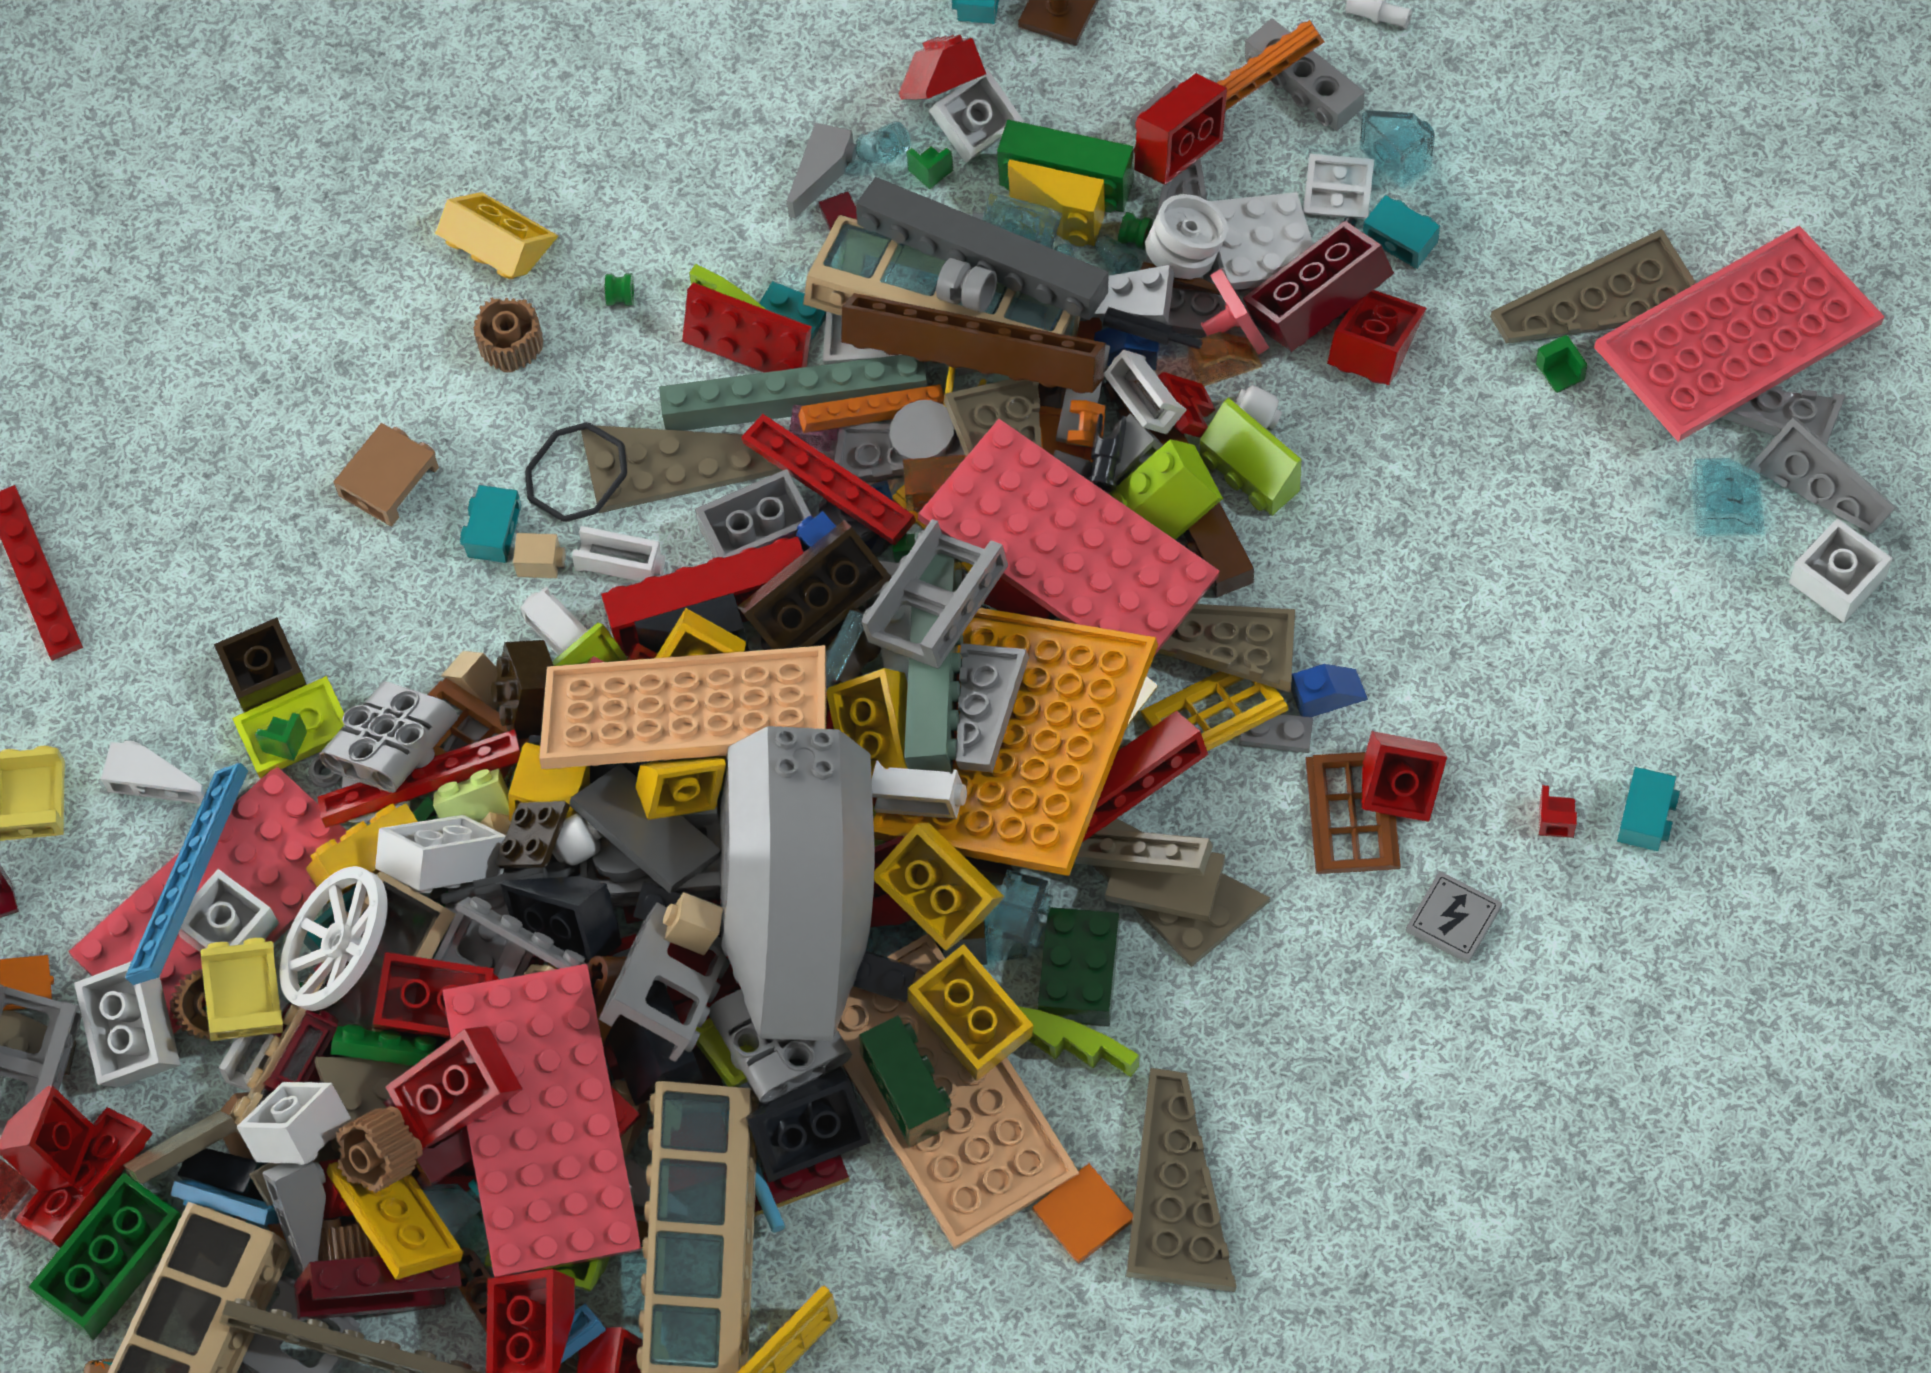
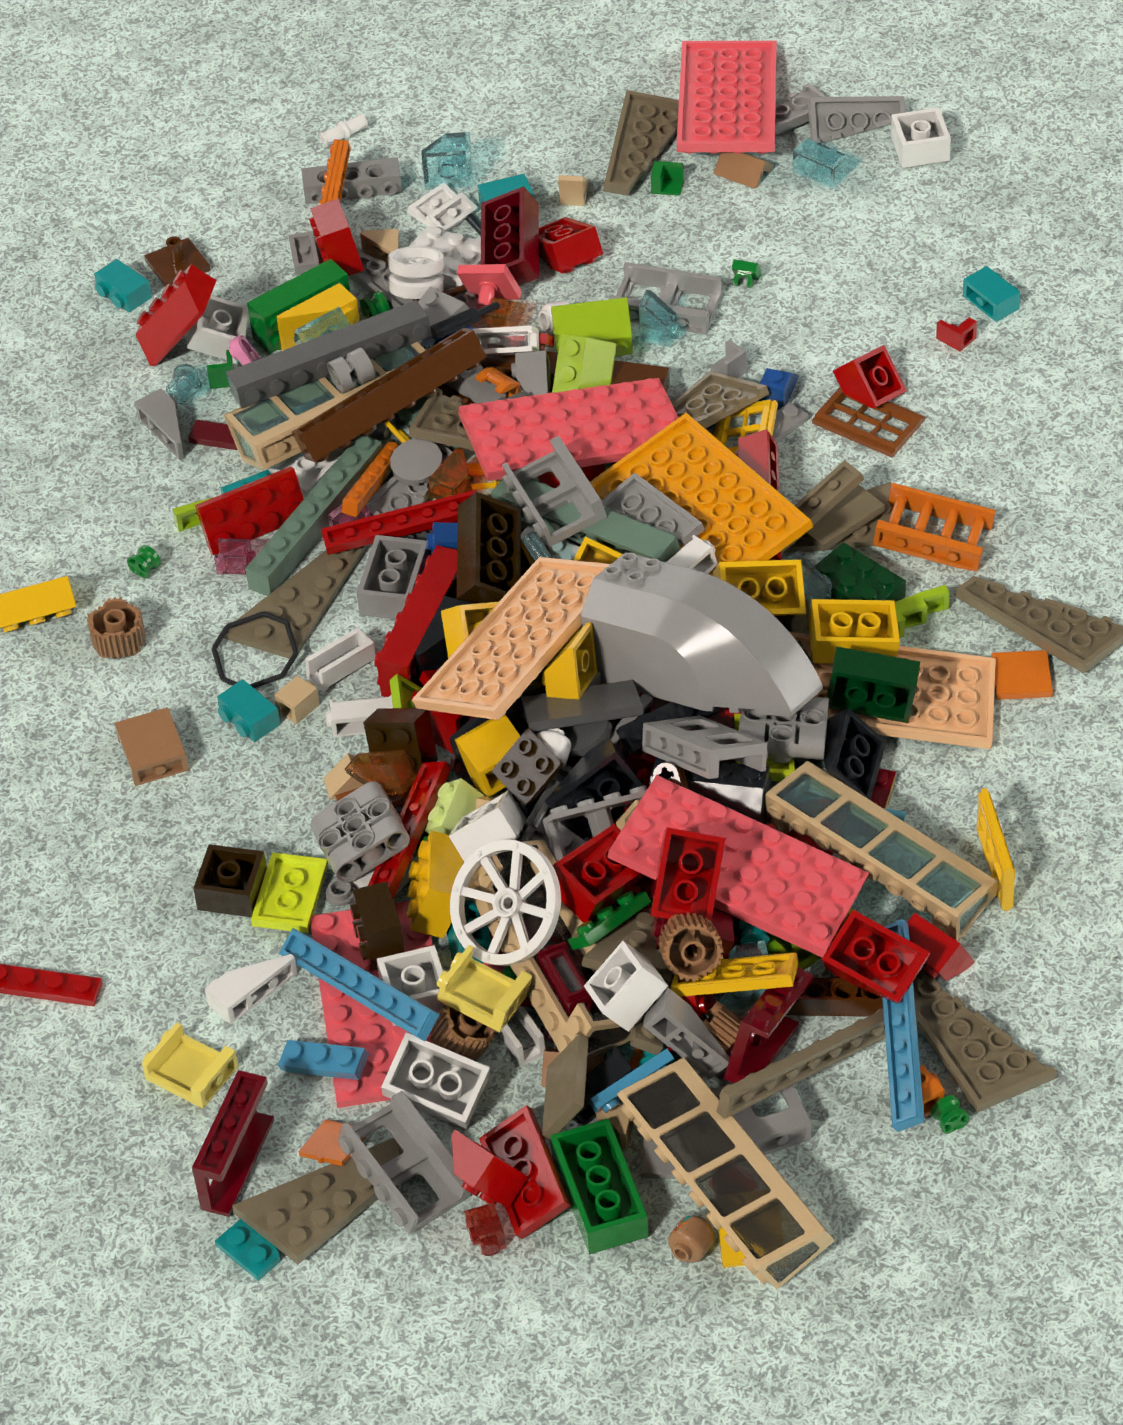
camera: 55 degrees left, 15 degrees down
(103, 904) = (323, 1059): none -> dark azure plate
(271, 839) = (376, 923): none -> dark brown brick
(283, 737) = (300, 892): green panel -> none
(476, 701) = (386, 767): none -> clear orange slope
(690, 354) = (233, 556): none -> clear pink window
(692, 923) = (679, 709): tan brick -> none
(958, 173) = (243, 350): none -> bright pink plate
(1106, 456) = (529, 377): black piece -> none
(1203, 1013) = (927, 545): none -> orange fence
(1233, 174) = (380, 243): none -> tan slope
(1319, 508) = (657, 321): none -> clear light blue slope
(1319, 623) = (733, 363): none -> light grey panel
(1352, 503) = (672, 285): none -> light grey window
(1454, 917) = (980, 412): light grey tile -> none
(1470, 285) = (573, 190): none -> tan slope
(1480, 541) = (746, 270): none -> green tile
(1644, 430) = (742, 168): none -> medium nougat panel

